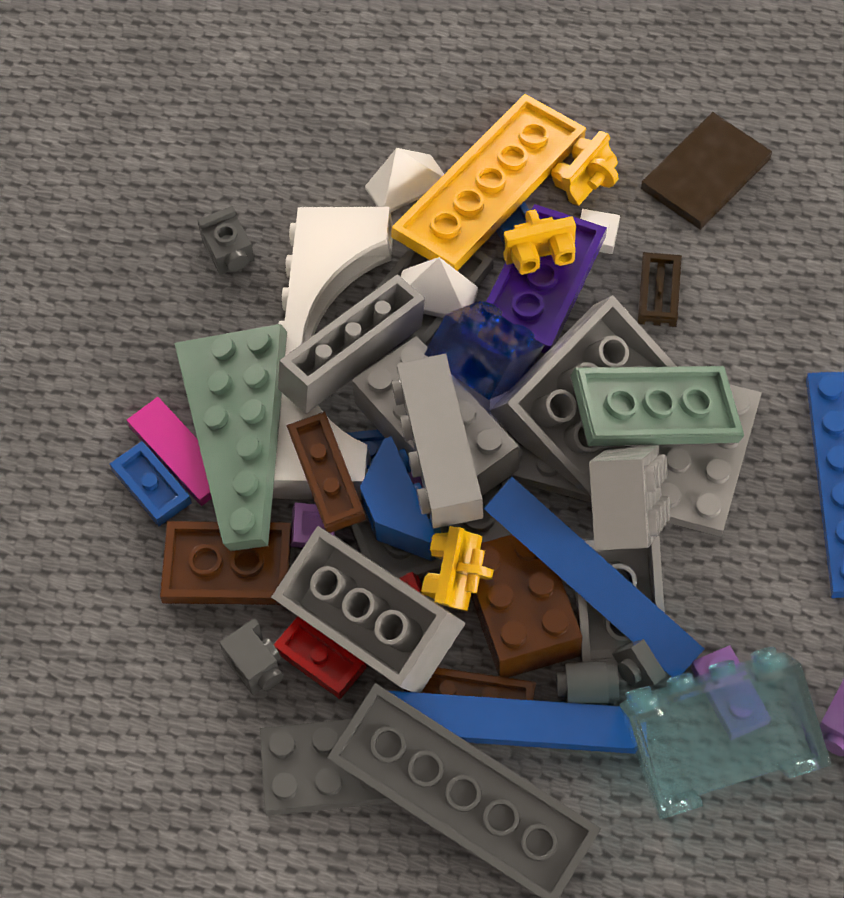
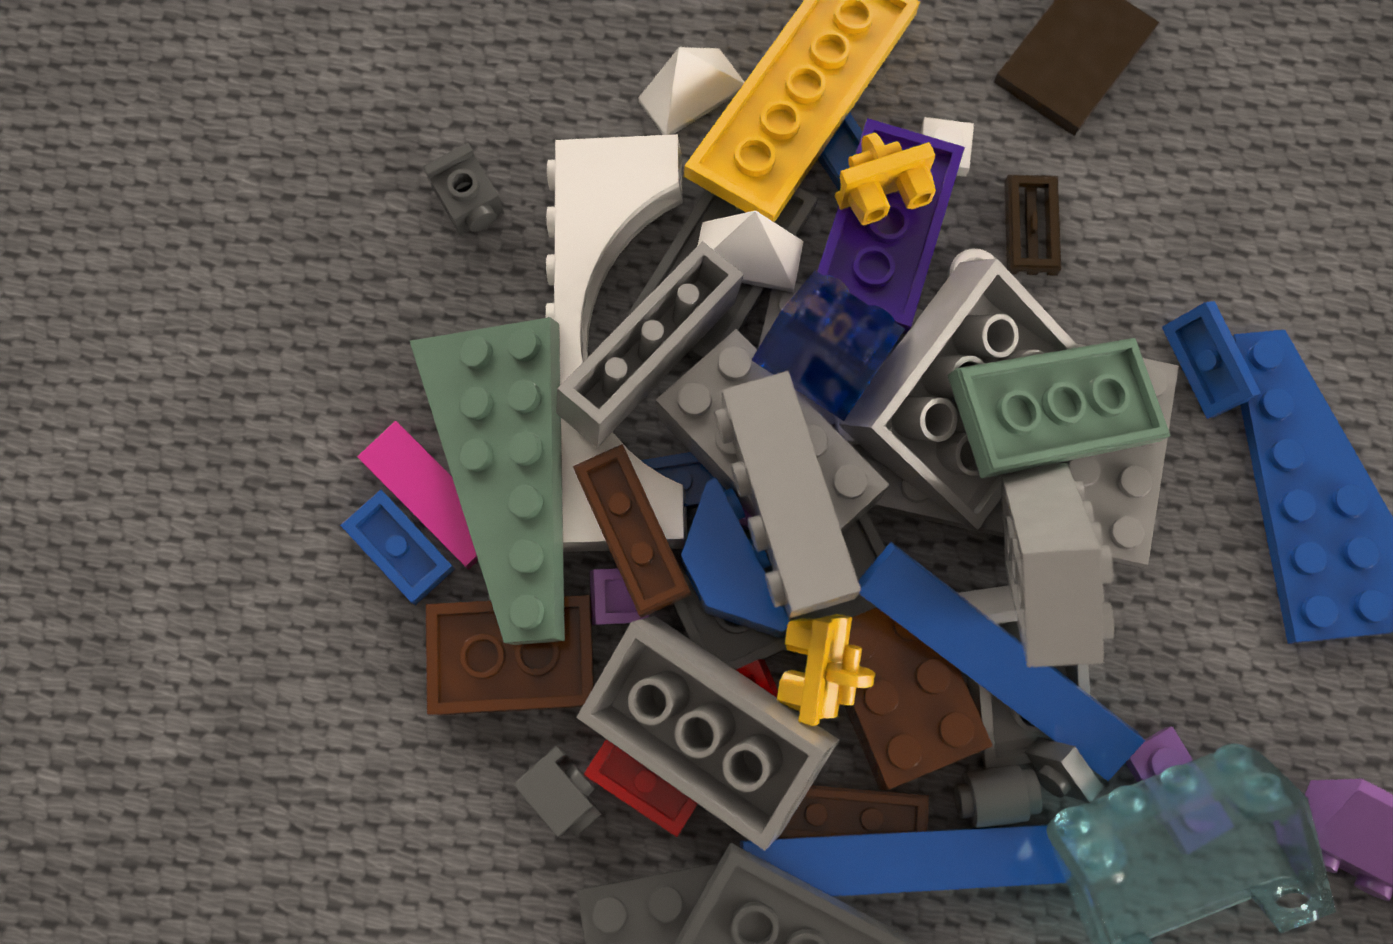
camera: 10 degrees left, 15 degrees up
(592, 166) = (933, 63): yellow hips -> none
(786, 388) = (1211, 359): none -> blue plate

